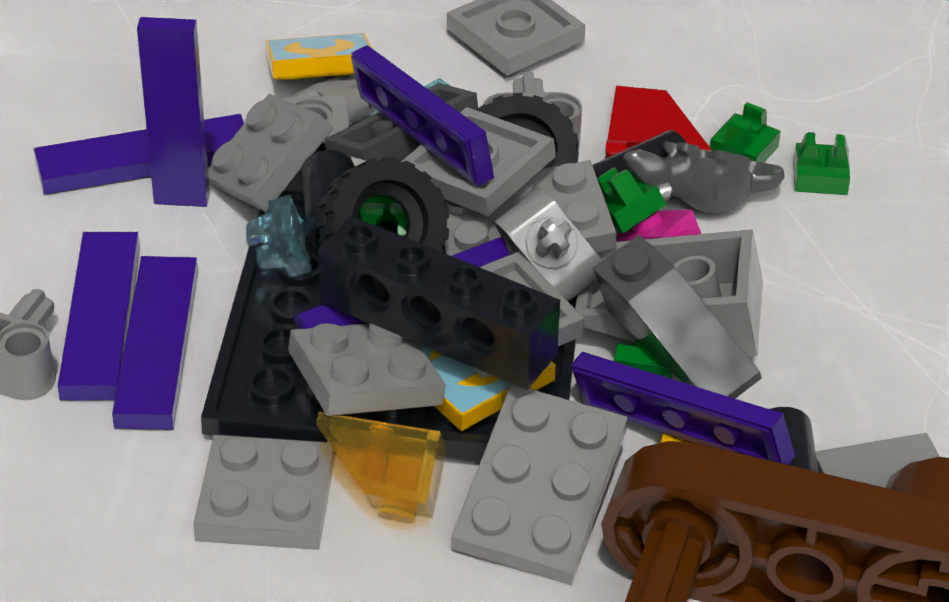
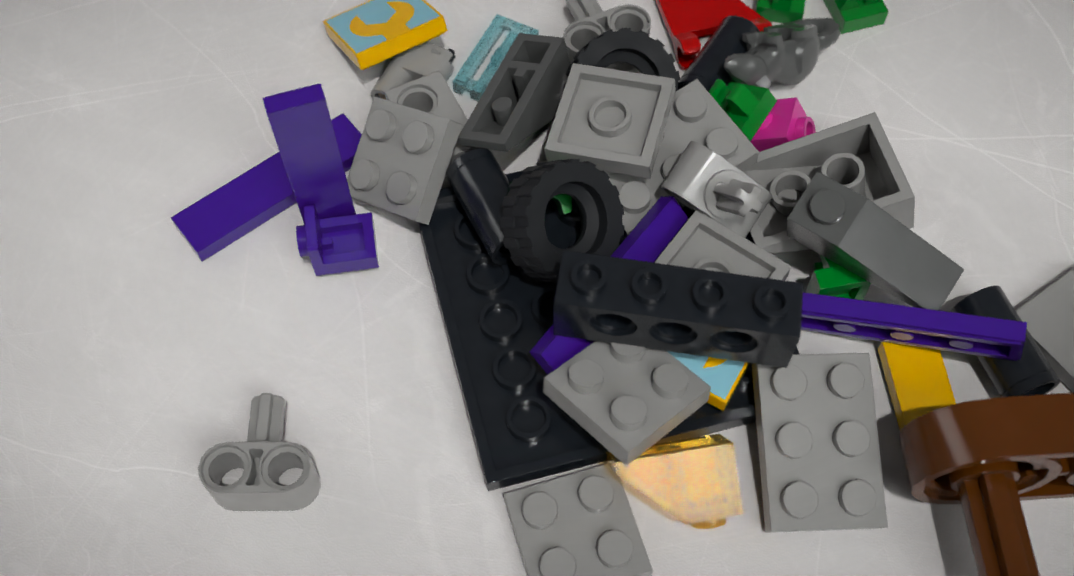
camera: 20 degrees left, 20 degrees up
(99, 316) = (327, 390): dark purple tile -> none
(156, 343) = (395, 402): dark purple tile -> none
(172, 207) = (337, 242): none -> dark purple bracket
(285, 238) = (465, 259): clear light blue tile -> none
(423, 115) = (551, 94): dark purple tile -> none

